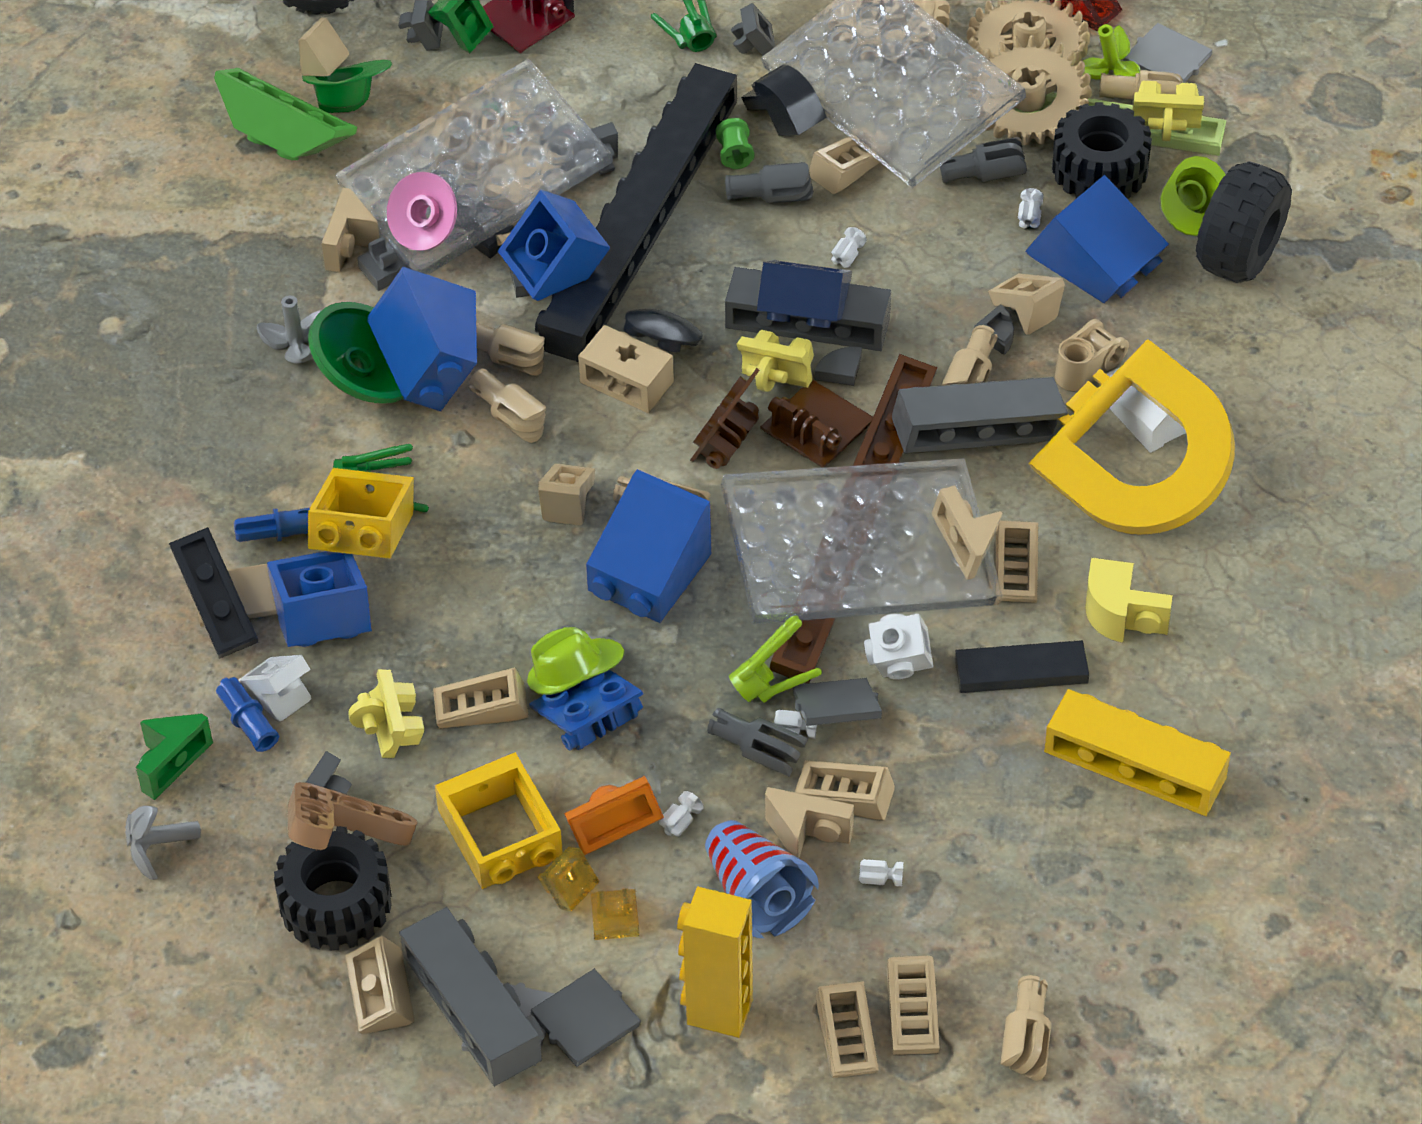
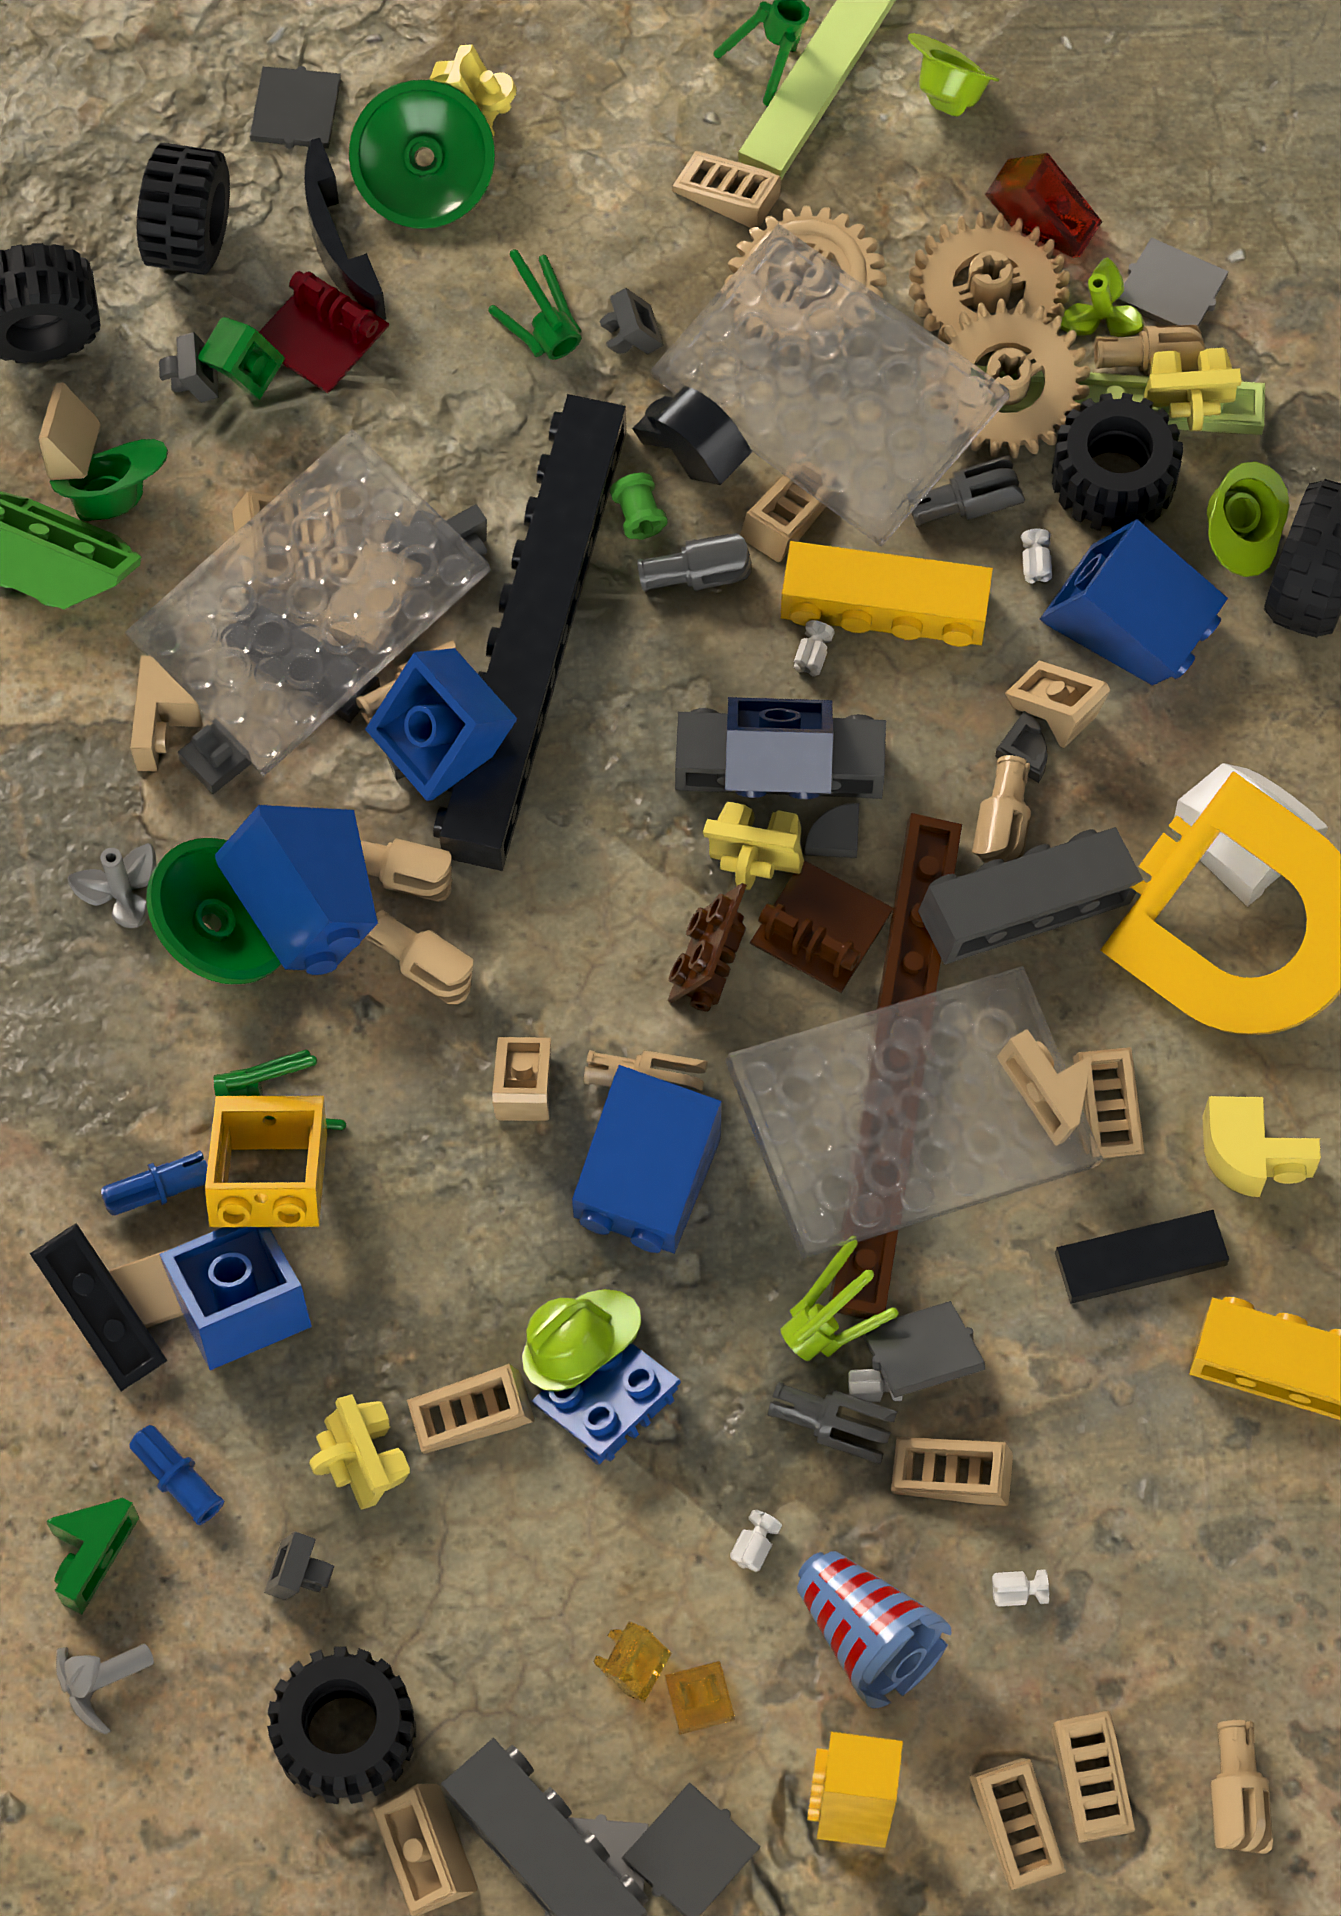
camera: 10 degrees left, 15 degrees up
(278, 685) = (205, 1425): white slope -> none
(316, 811) = (376, 1619): medium nougat beam -> none
(408, 211) = (241, 700): bright pink dish -> none
(487, 786) = (498, 1546): yellow window -> none
(613, 814) = (673, 1560): orange tile -> none
(626, 368) = (537, 882): tan brick -> none
(663, 326) = (599, 814): black dish -> none
(799, 815) = (900, 1525): tan slope -> none
(899, 646) = (1007, 1253): white brick -> none
(910, 216) = (886, 593): none -> yellow brick
(1086, 353) = (1153, 770): tan piece -> none

